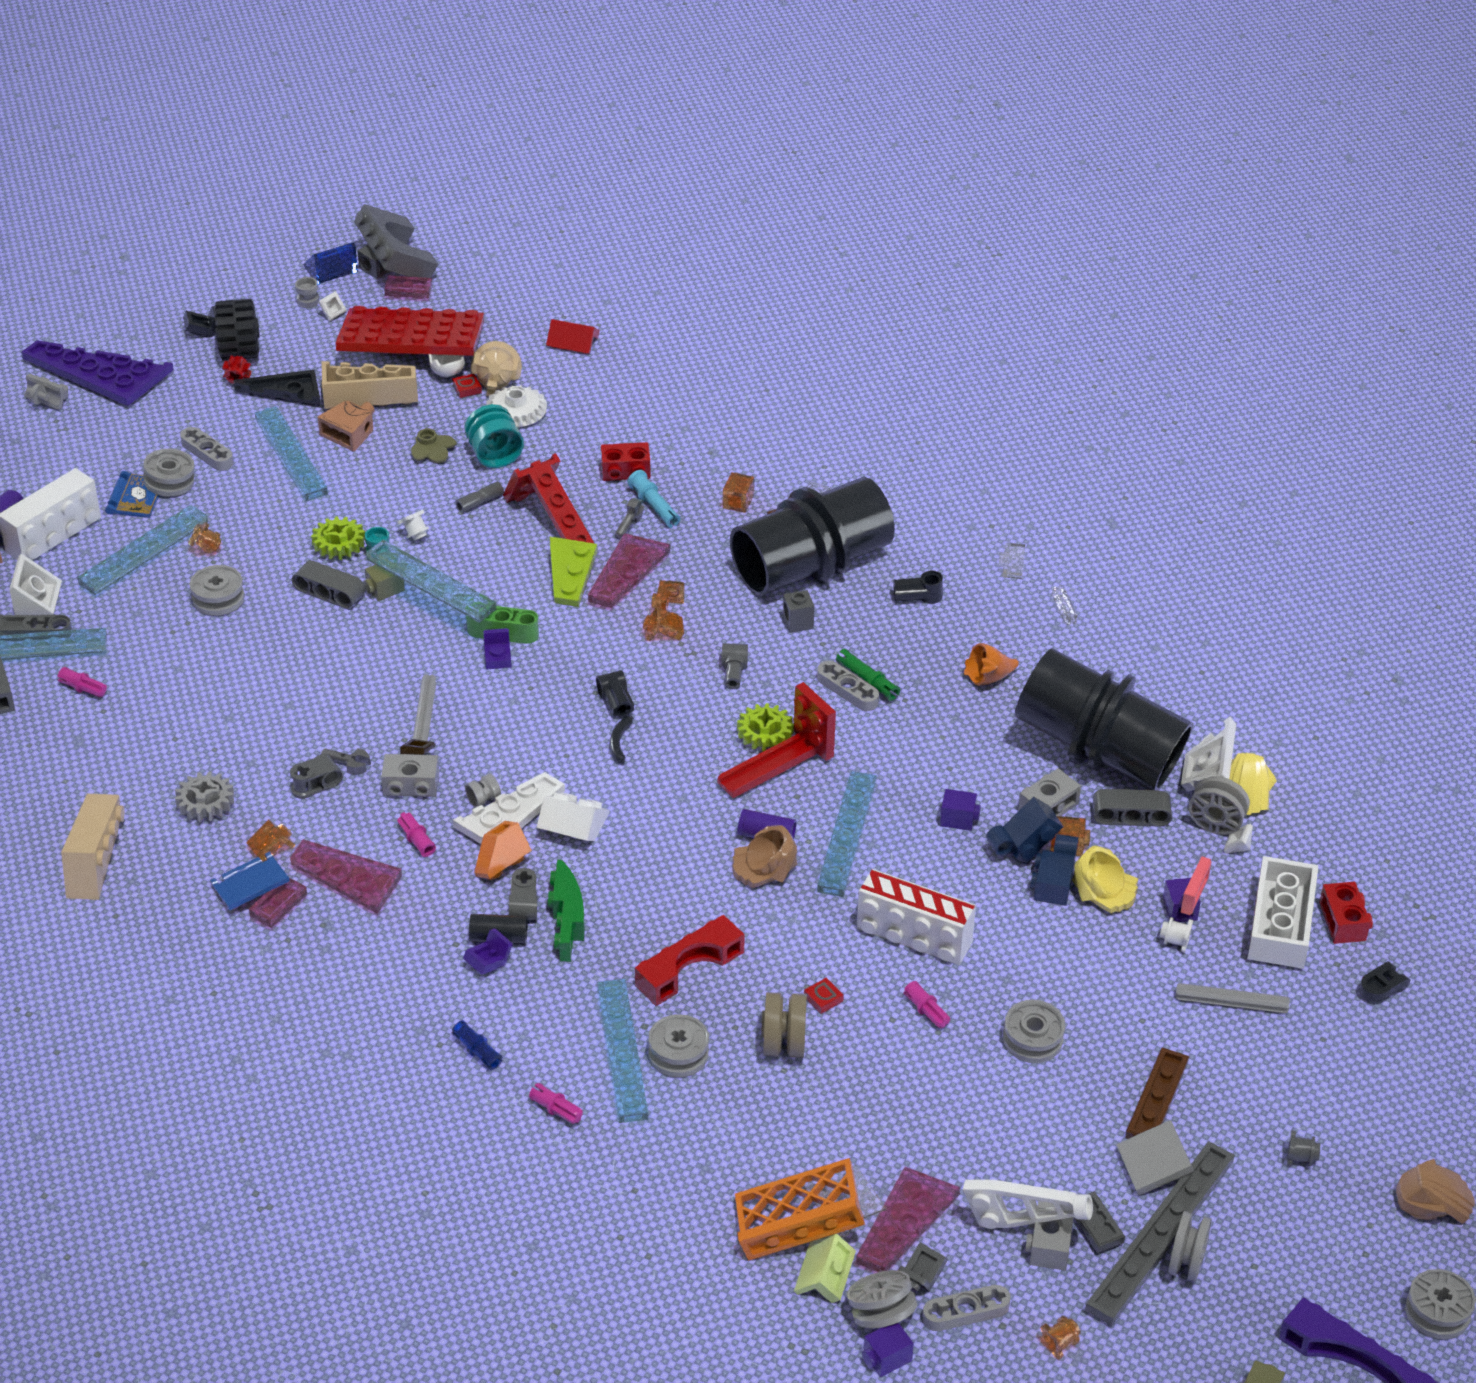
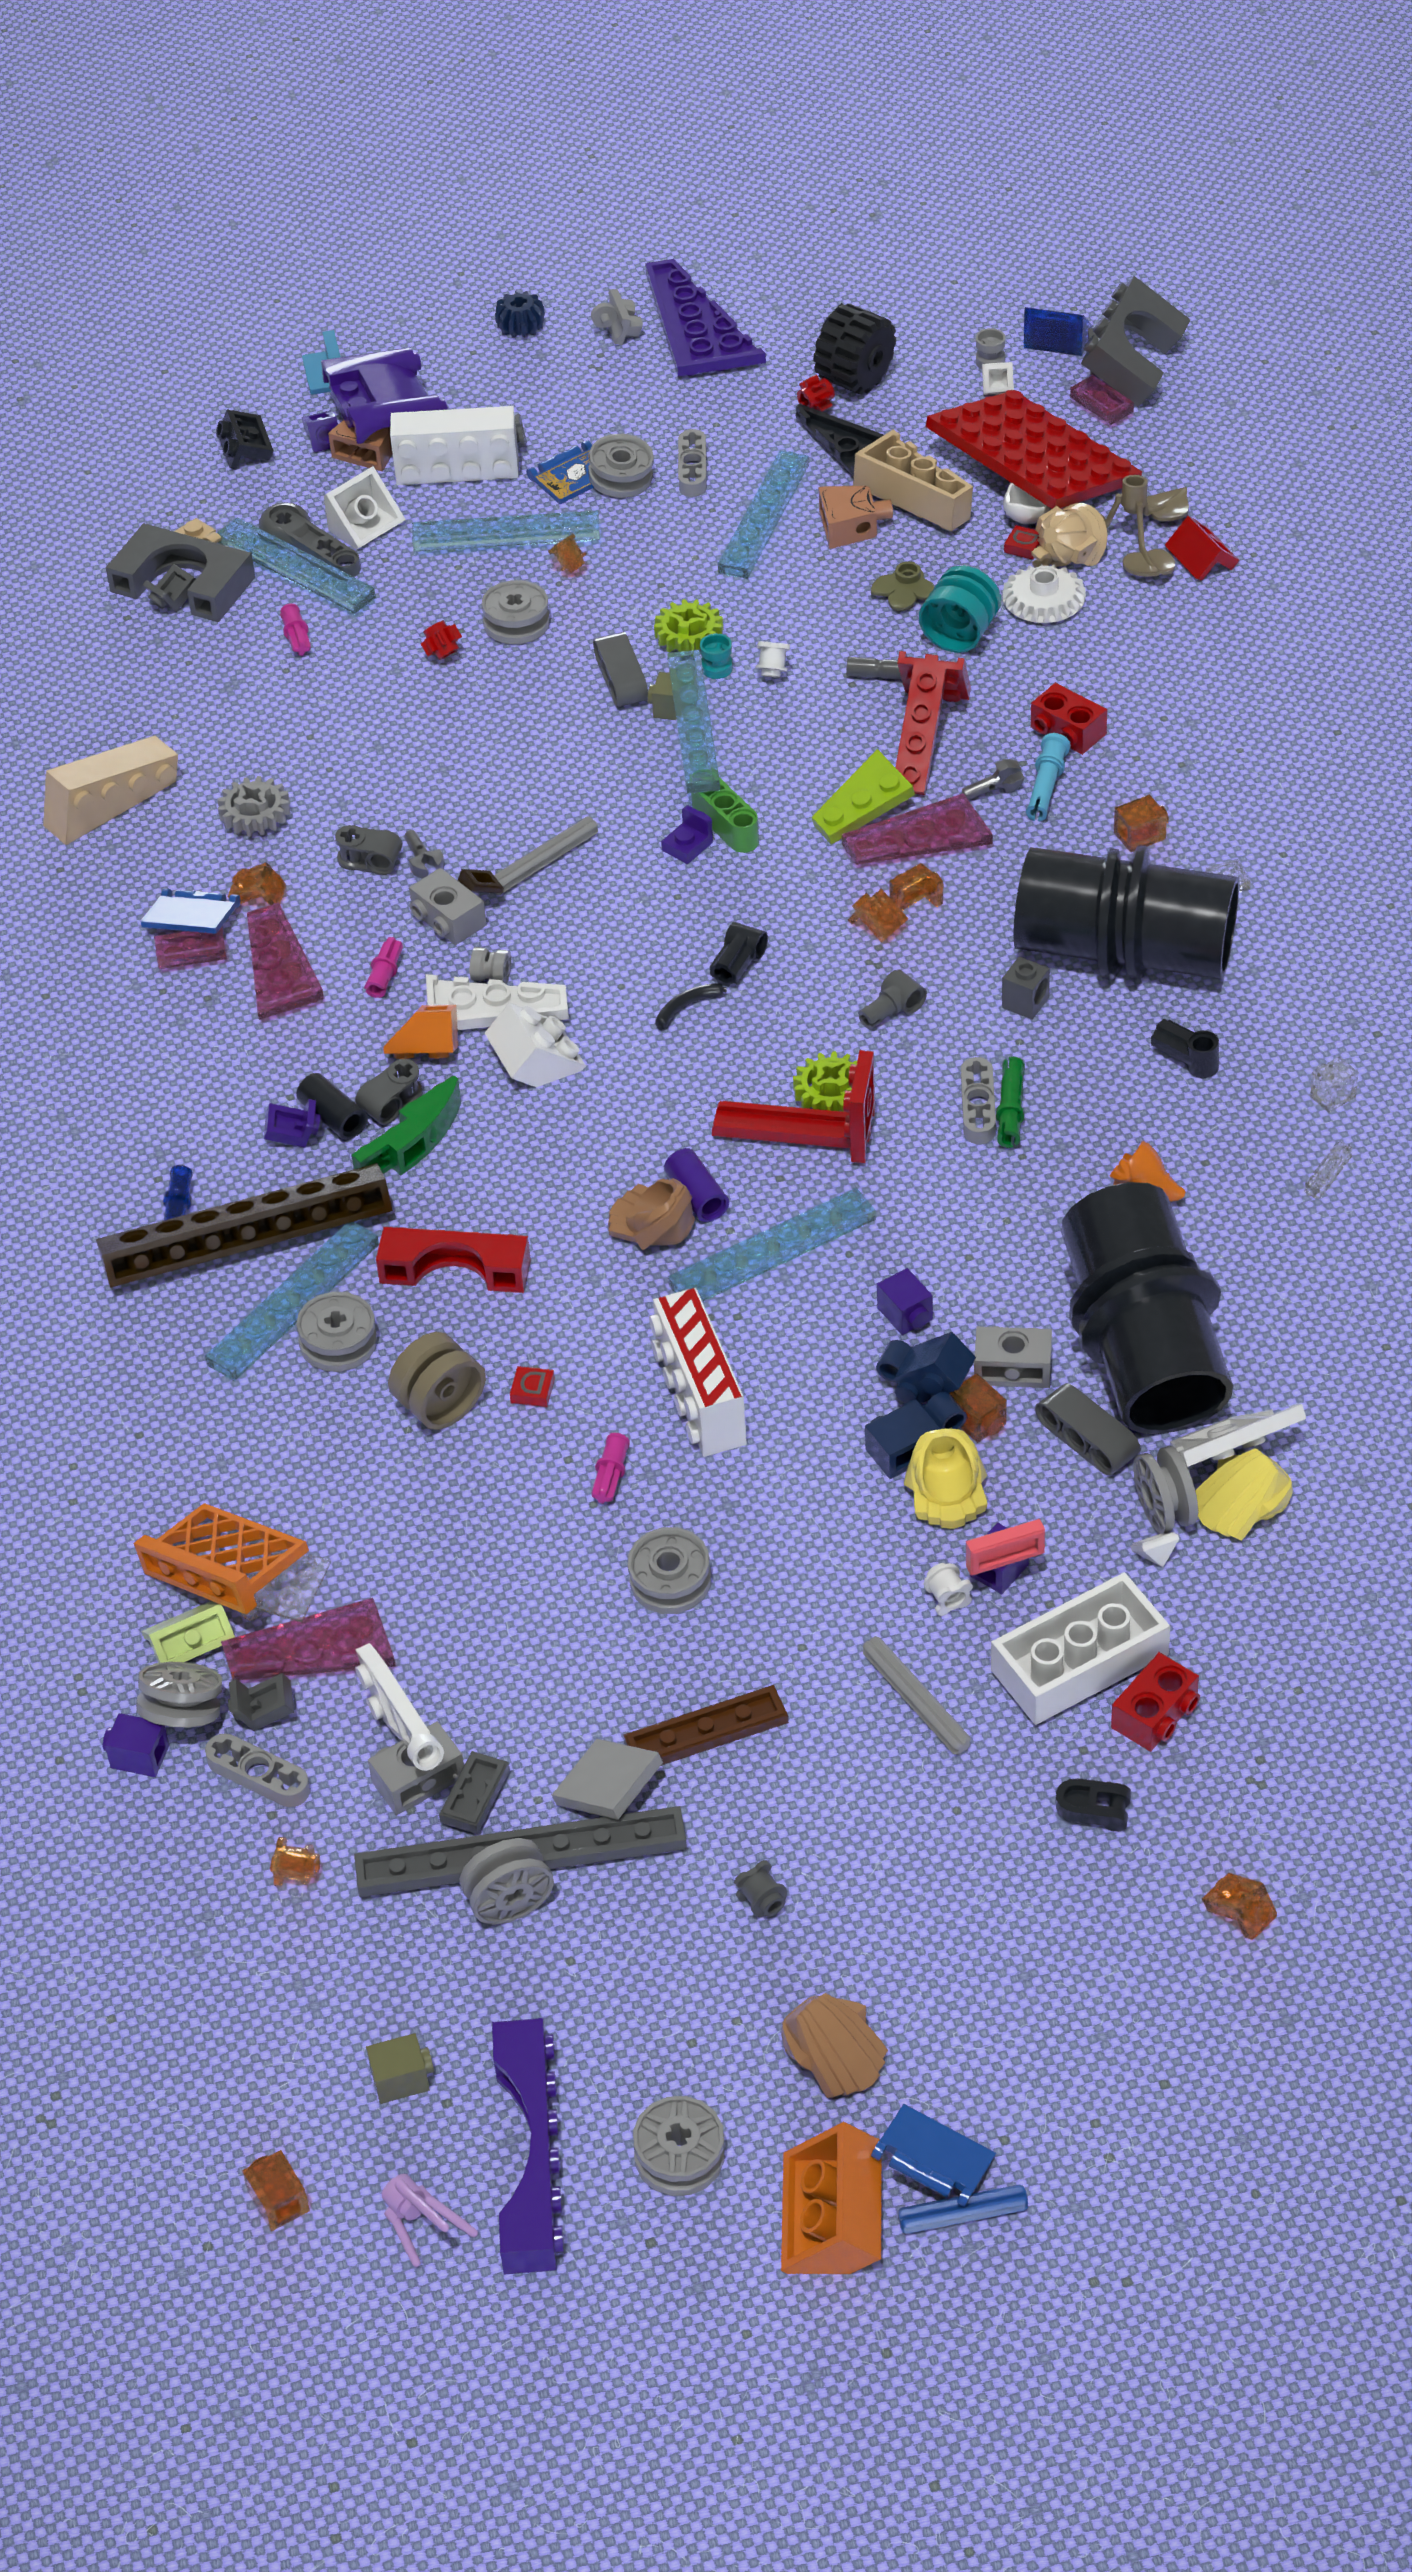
camera: 50 degrees right, 5 degrees up
(193, 631) = (441, 640): none -> red gear
(518, 323) = (1162, 507): none -> dark tan plant
(543, 1029) = (244, 1225): none -> dark brown brick
(556, 1103) = (169, 1303): dark pink axle -> none

